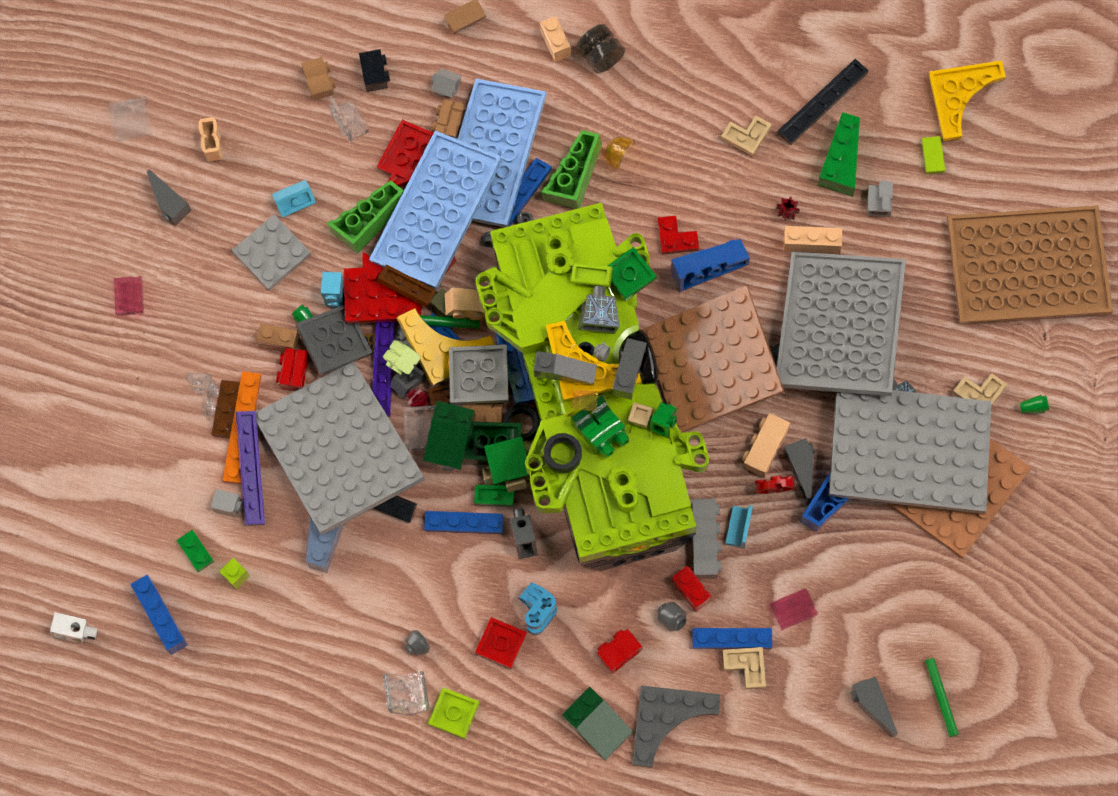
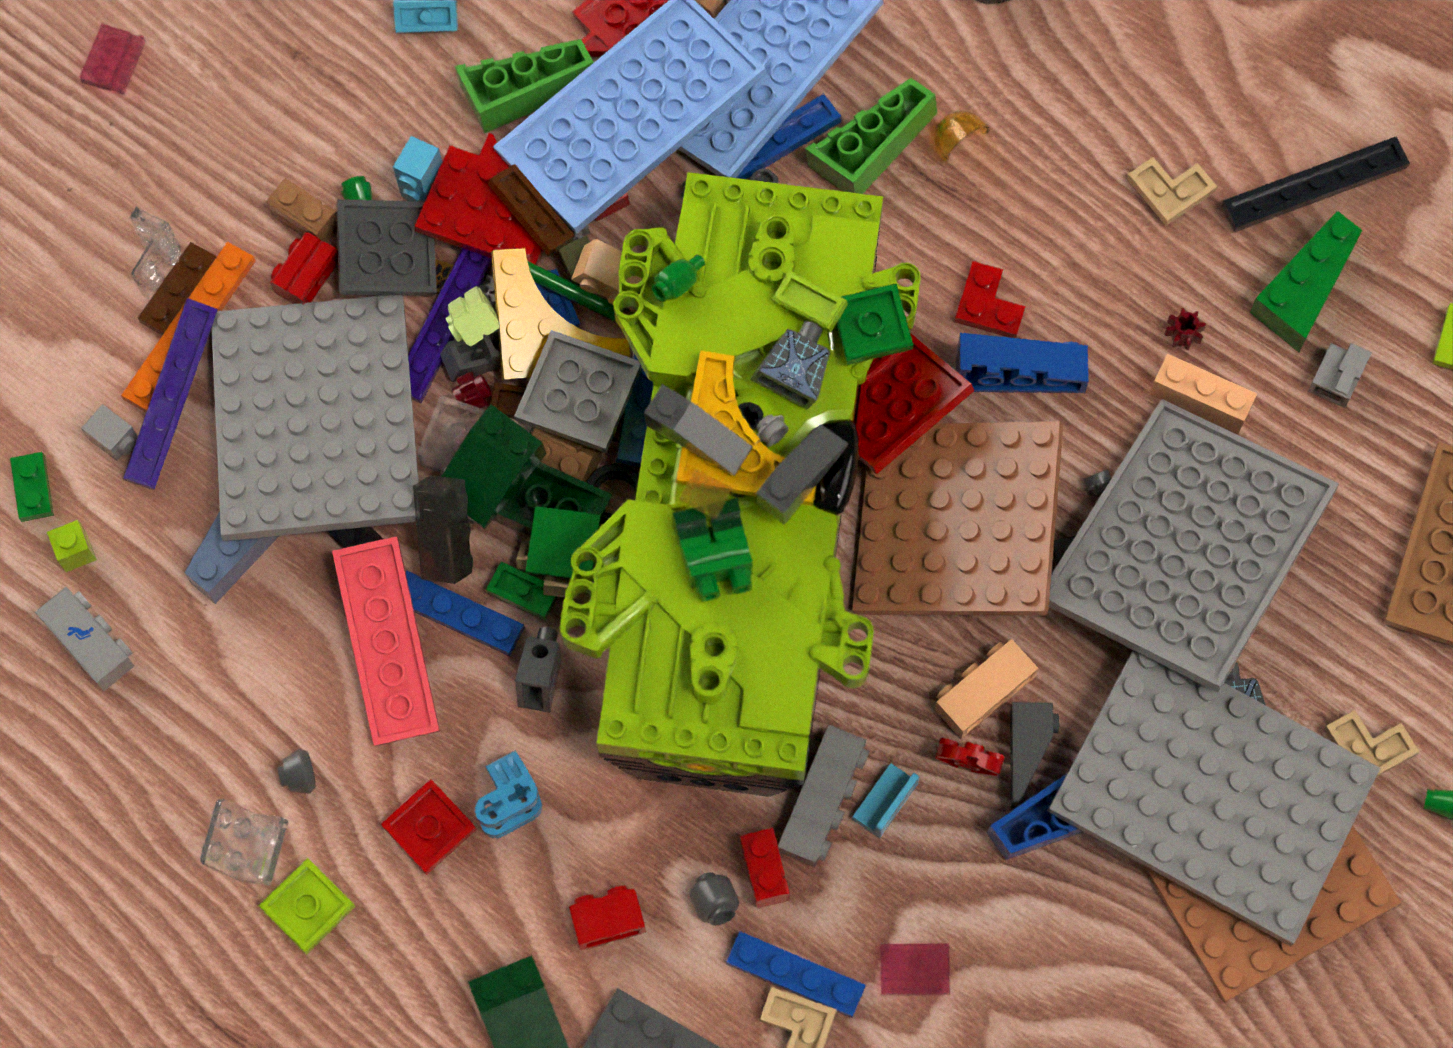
camera: 20 degrees right, 0 degrees up
(265, 620) = (86, 637): none -> light grey brick
(271, 252) = (355, 79): light grey plate -> none
(433, 553) = (386, 641): none -> coral plate
(438, 479) = (443, 529): none -> clear smoke brick
(514, 291) = (677, 278): none -> green plant
(562, 468) = (624, 541): black tyre -> none
(640, 415) = (788, 555): tan plate -> none
(659, 308) = (903, 401): none -> red wing
(663, 419) = (822, 577): green brick -> none
(777, 310) = (1098, 482): none -> dark grey plate

